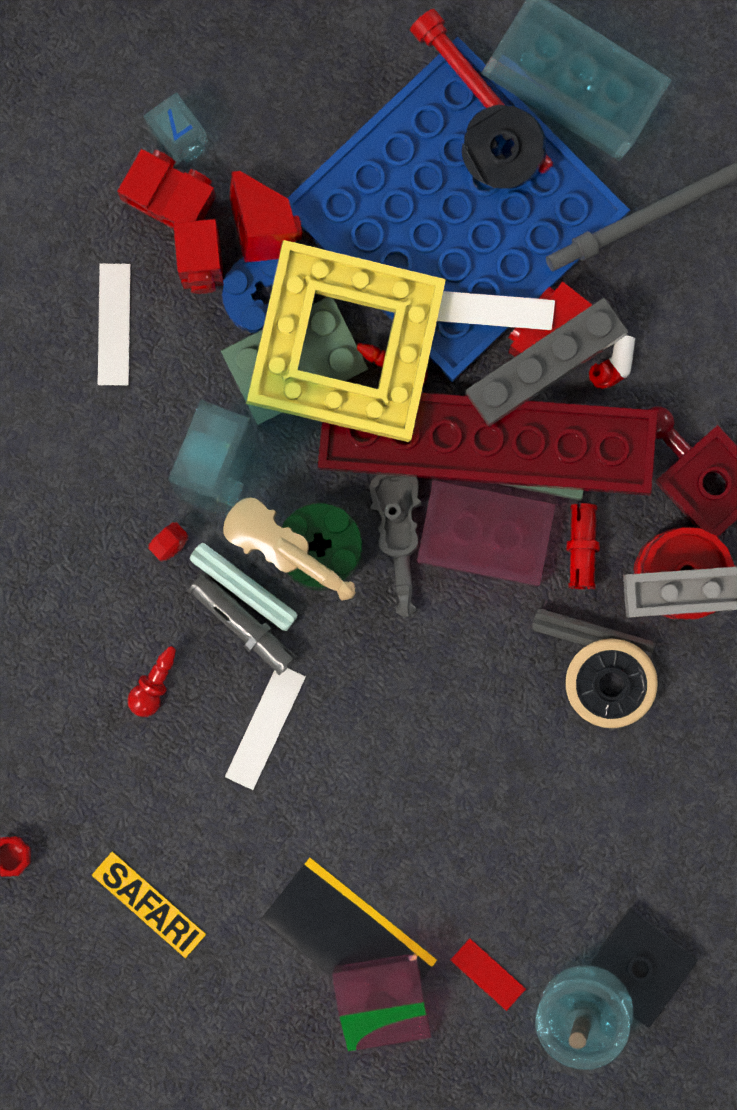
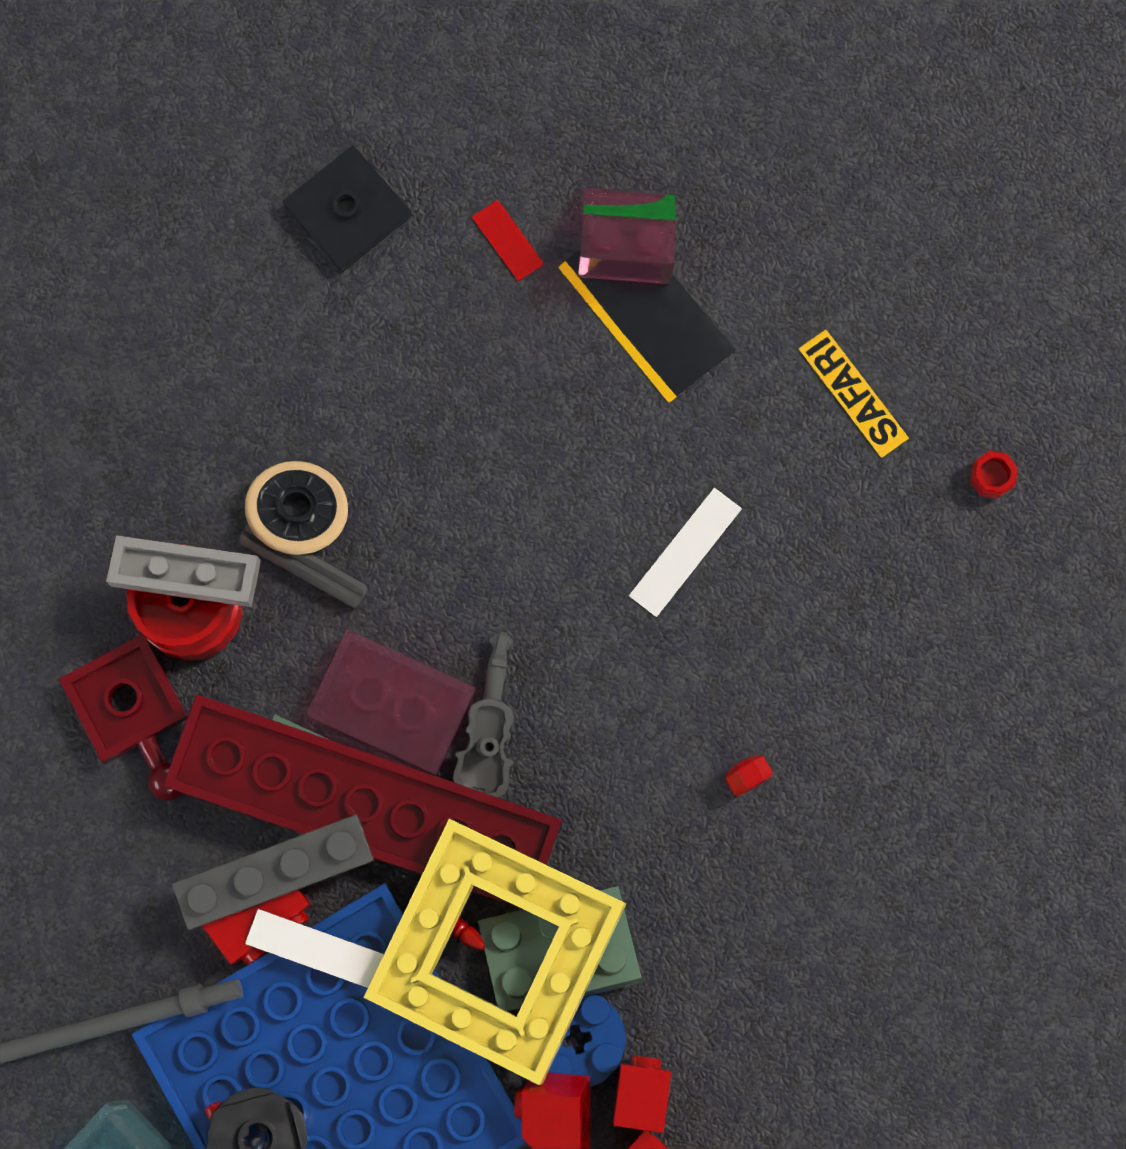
camera: 165 degrees left, 5 degrees down
(114, 324) = (756, 1046): white sticker -> none
(145, 698) = (810, 612): red bar -> none
(213, 459) = (678, 837): clear light blue brick -> none
(243, 586) = (675, 707): light aqua axle -> none
(245, 626) = (685, 665): dark grey pin -> none
(254, 528) = (648, 757): tan piece -> none
(334, 527) = (602, 710): dark green brick -> none
(583, 546) = (288, 663): red pin -> none
(584, 1017) = (417, 165): clear light blue wheel -> none
(615, 368) = (198, 856): arm -> none

